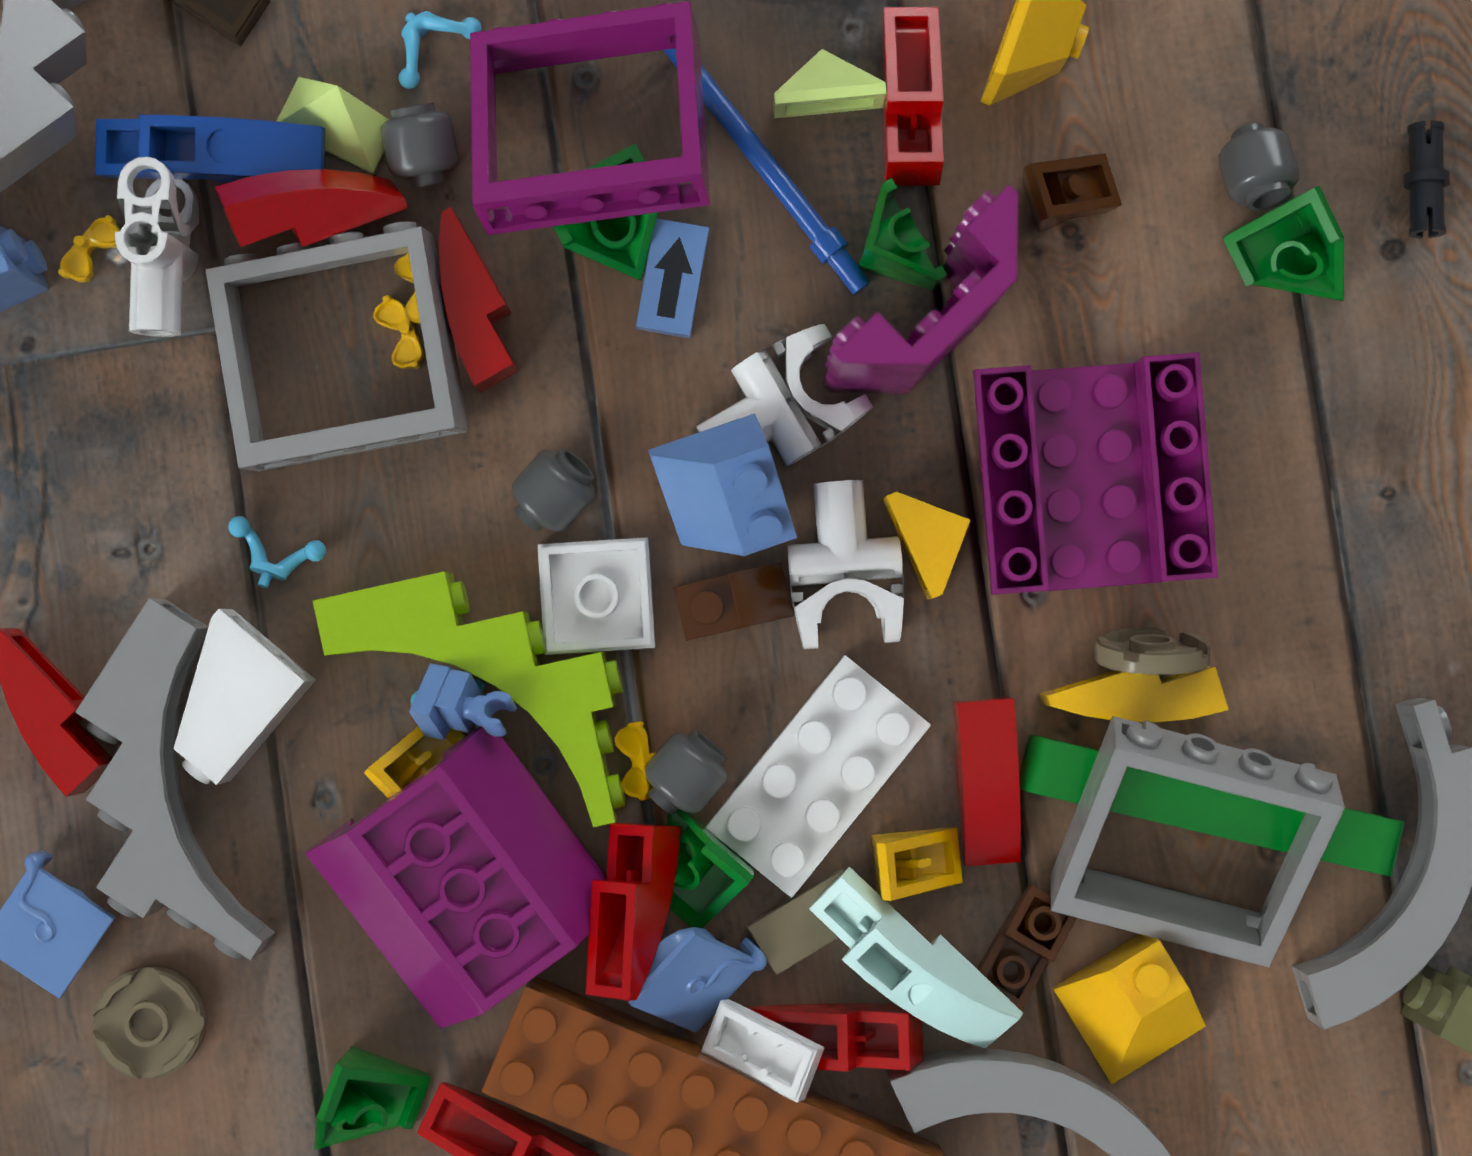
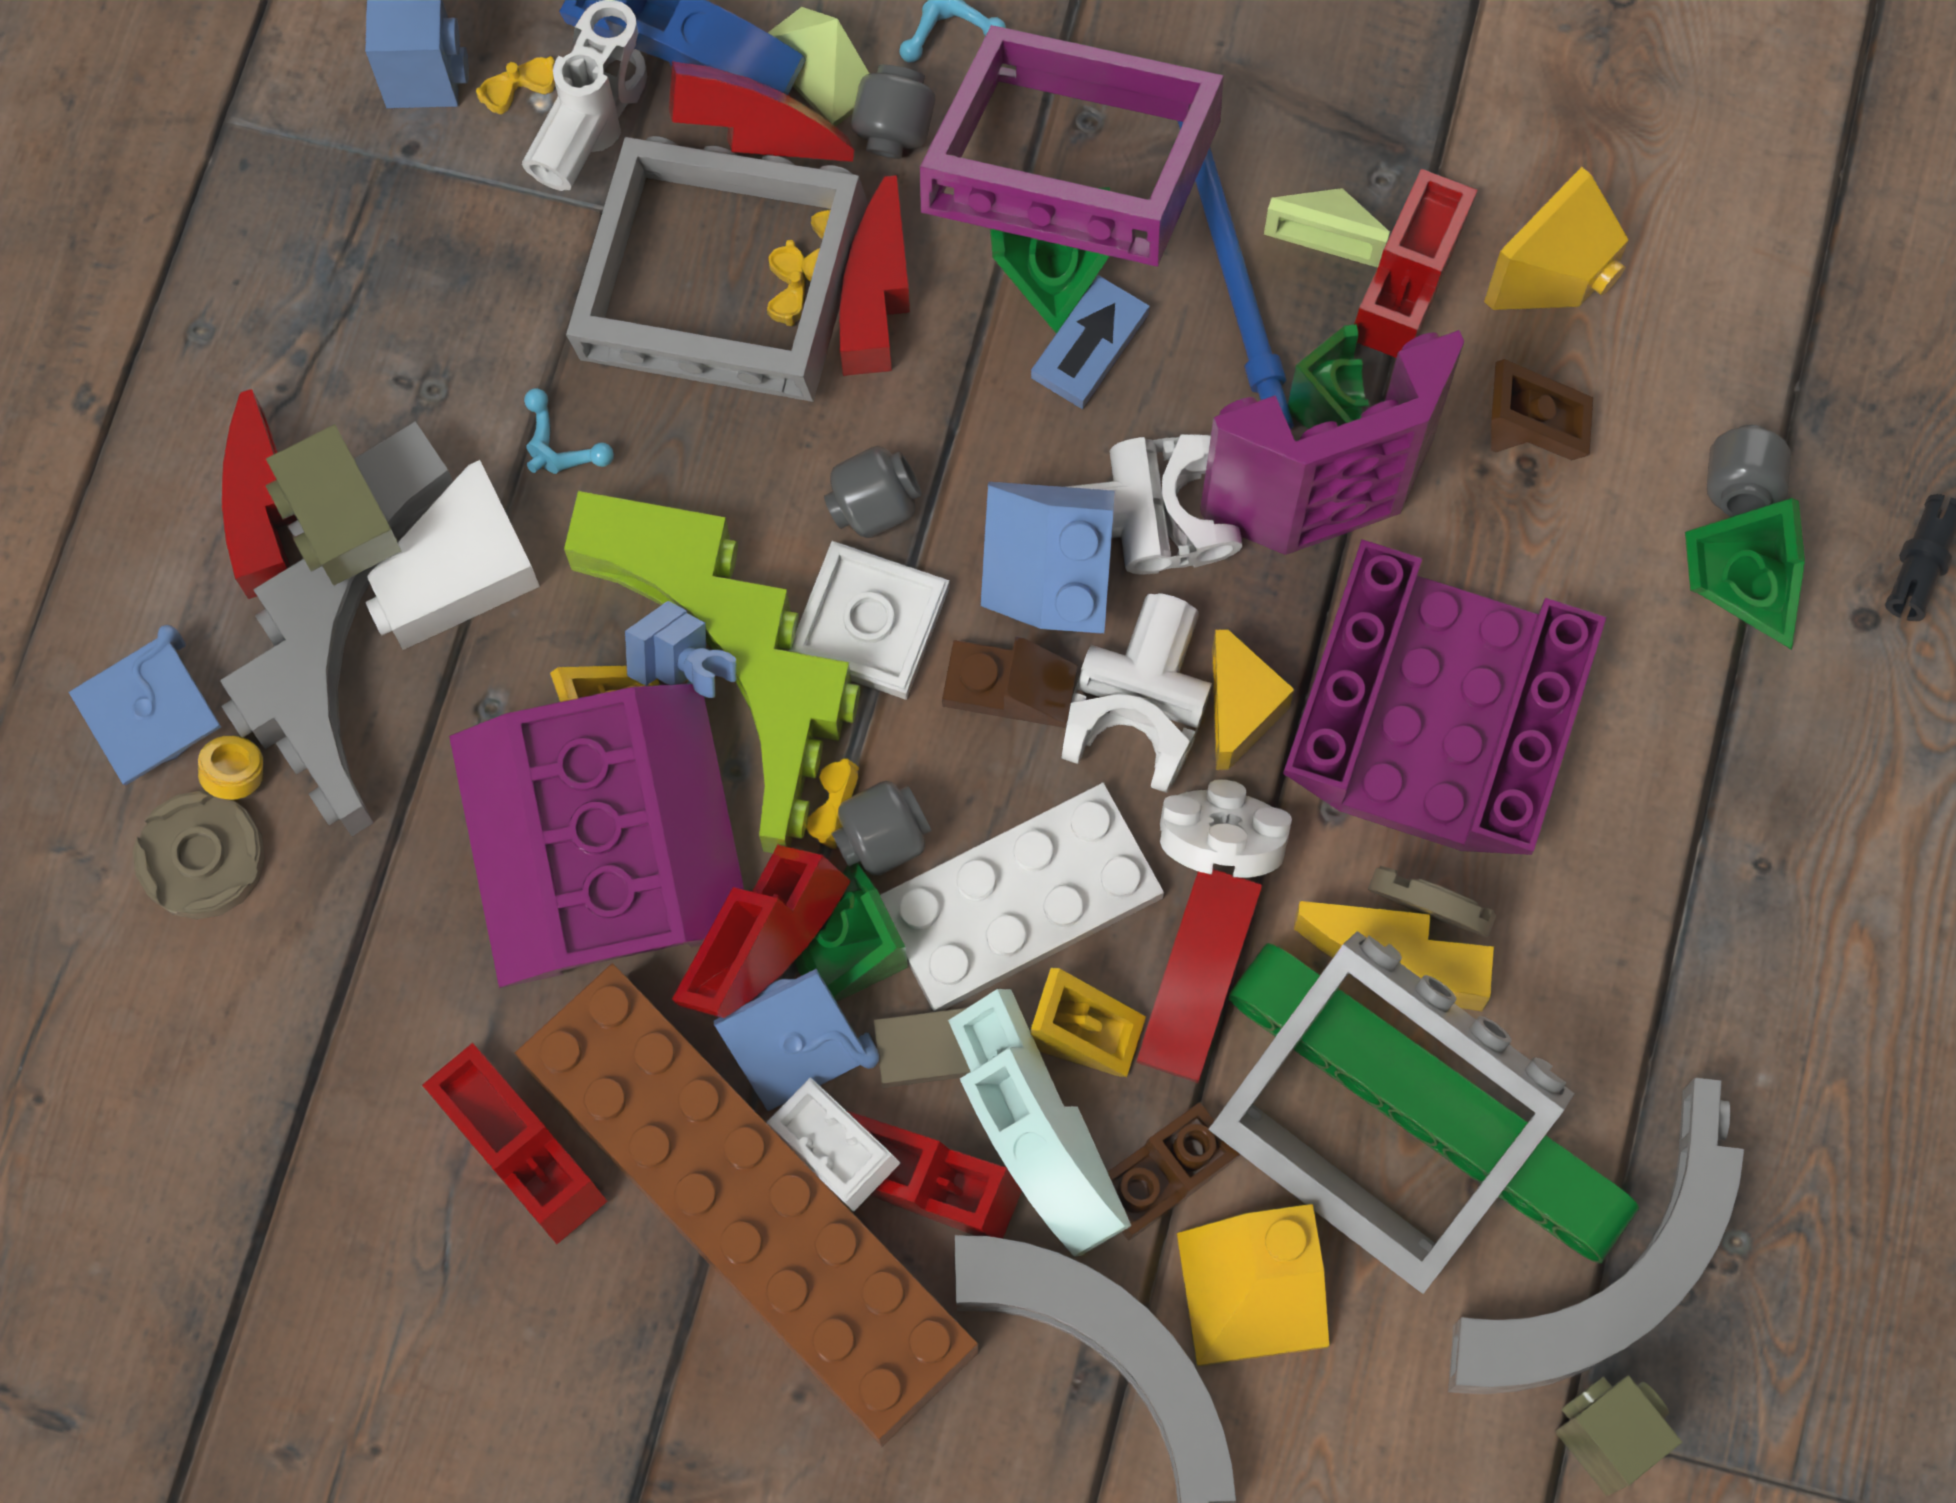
camera: 25 degrees right, 15 degrees down
(115, 713) = (333, 505): none -> olive brick
(139, 944) = (230, 767): none -> yellow tile
(368, 1097) = (382, 1028): green slope -> none
(955, 637) = (1224, 829): none -> white plate

